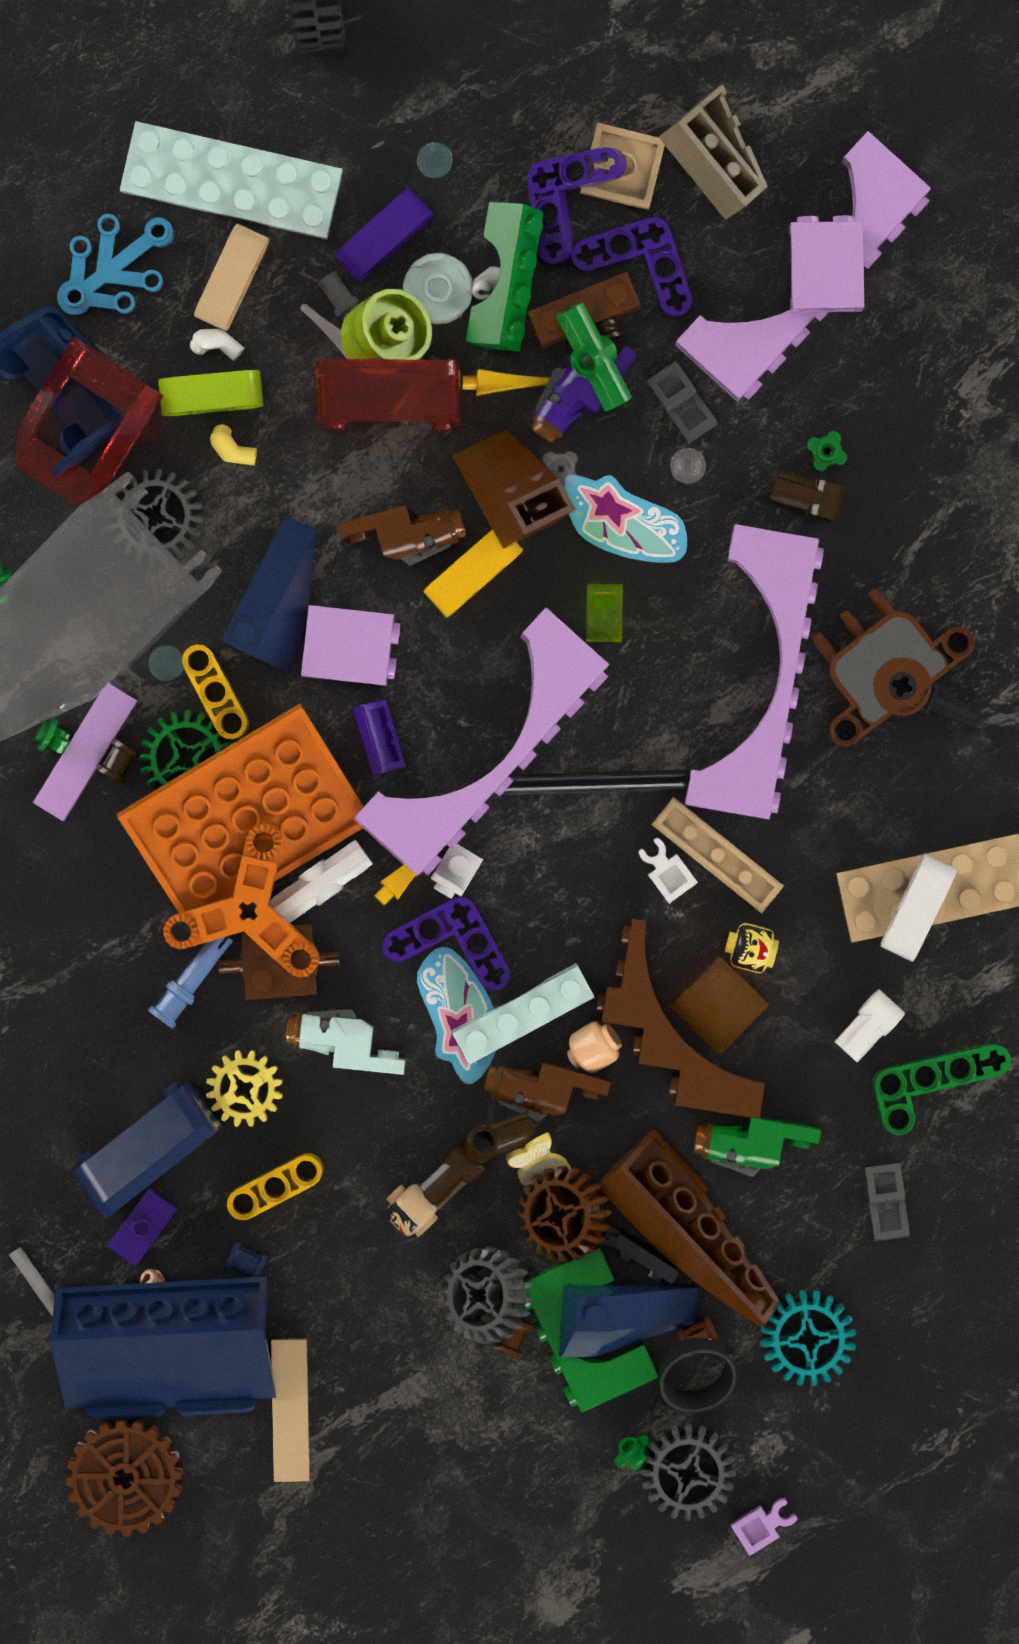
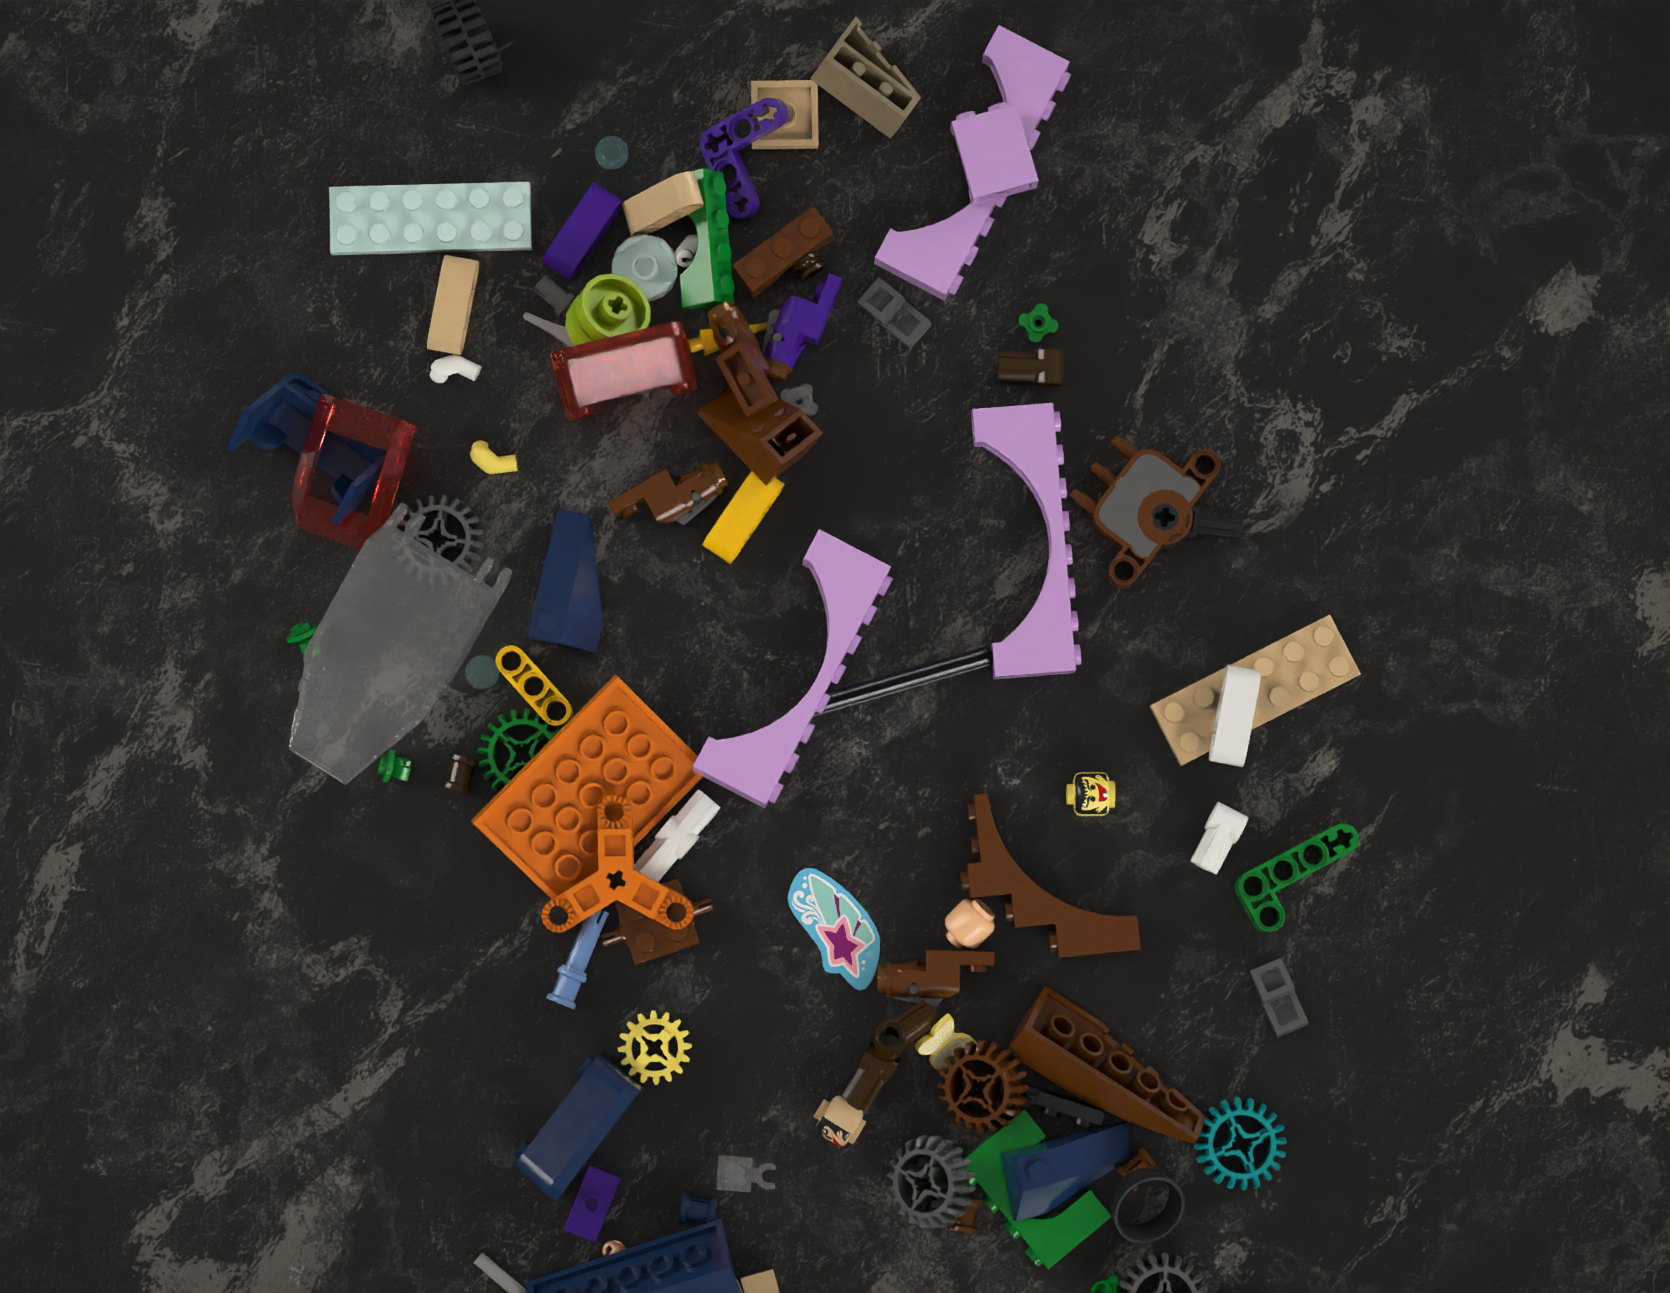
camera: 20 degrees left, 5 degrees down
(85, 752) = (427, 773): lavender tile -> none
(110, 269) = (340, 326): dark azure plant -> none
(211, 393) = (460, 414): lime beam -> none
(262, 1198) = (699, 1147): yellow beam -> none
(296, 1235) = (737, 1173): none -> clear plate
(345, 1036) = (733, 974): light aqua plate -> none
(349, 645) = (647, 611): lavender panel -> none
(379, 737) = (696, 689): dark purple plate -> none
(394, 884) = (745, 821): yellow piece -> none
(448, 927) = (805, 849): dark purple beam -> none
(455, 871) = (799, 794): white bracket -> none
(472, 229) = (662, 204): none -> tan beam
(511, 412) = (741, 358): none -> reddish brown plate
(523, 1014) = (896, 910): light aqua arch -> none
(593, 356) = (803, 288): green piece -> none
(604, 612) = (873, 521): clear neon green slope -> none
(625, 522) = (871, 436): sticker -> none
(652, 253) = (831, 186): dark purple beam -> none
(670, 875) = (998, 746): white plate -> none
(688, 465) = (915, 368): clear plate -> none
(717, 855) = (1036, 717): tan tile -> none
(719, 1005) = (1075, 855): clear orange slope -> none
(751, 1148) = (1141, 979): green plate -> none

